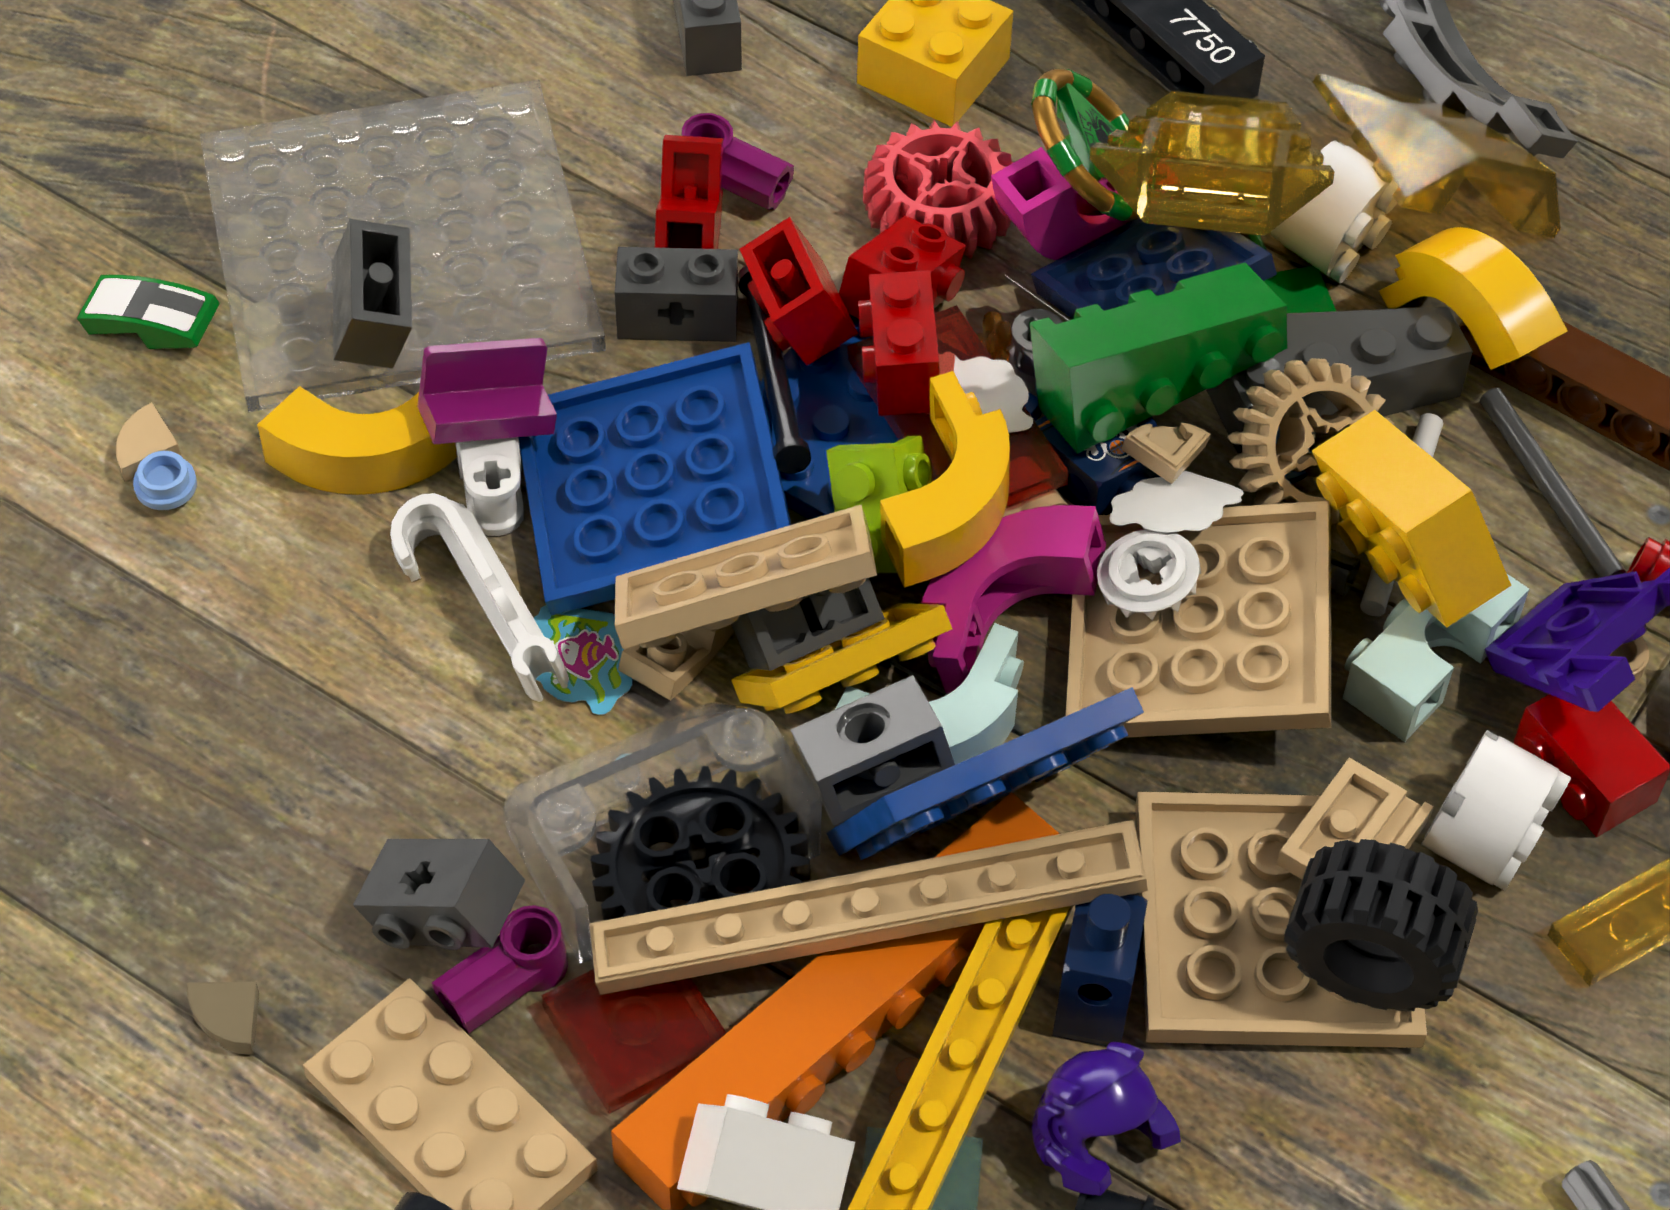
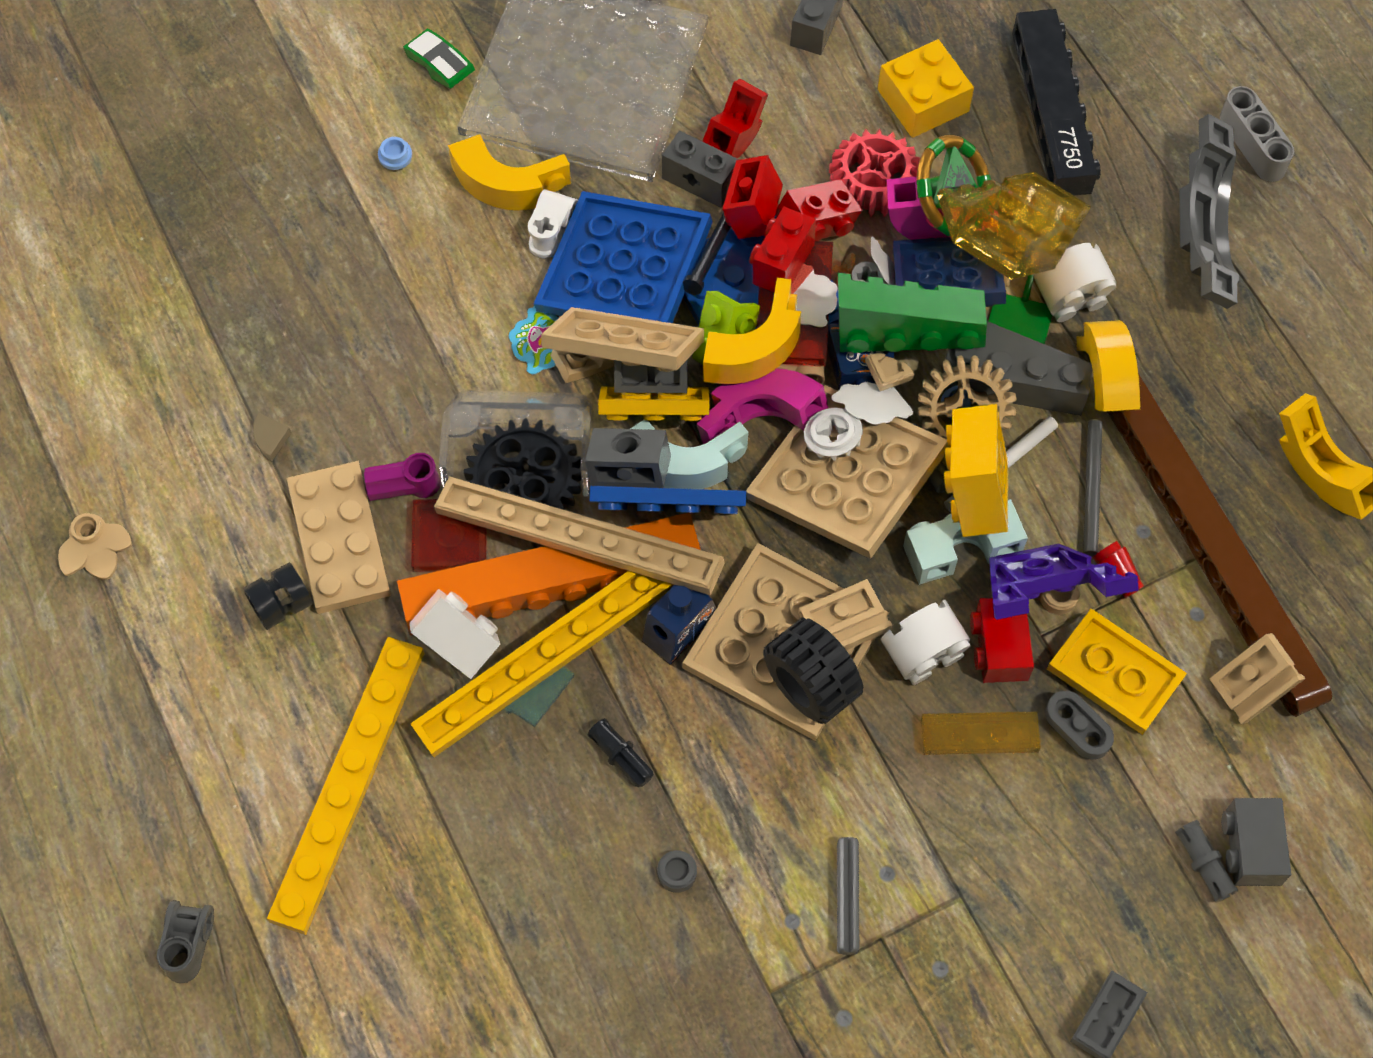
camera: 30 degrees right, 10 degrees up
(141, 436) = (397, 125): tan tile -> none
(371, 294) = (539, 101): dark grey brick -> none
(439, 893) = (389, 427): dark grey brick -> none
(485, 391) = (563, 180): magenta panel -> none
(486, 576) = (512, 279): white piece -> none
(745, 168) = (778, 110): magenta piece -> none
(1097, 1097) = (629, 683): dark purple helmet -> none
(1435, 148) = (1150, 264): clear yellow wedge -> none

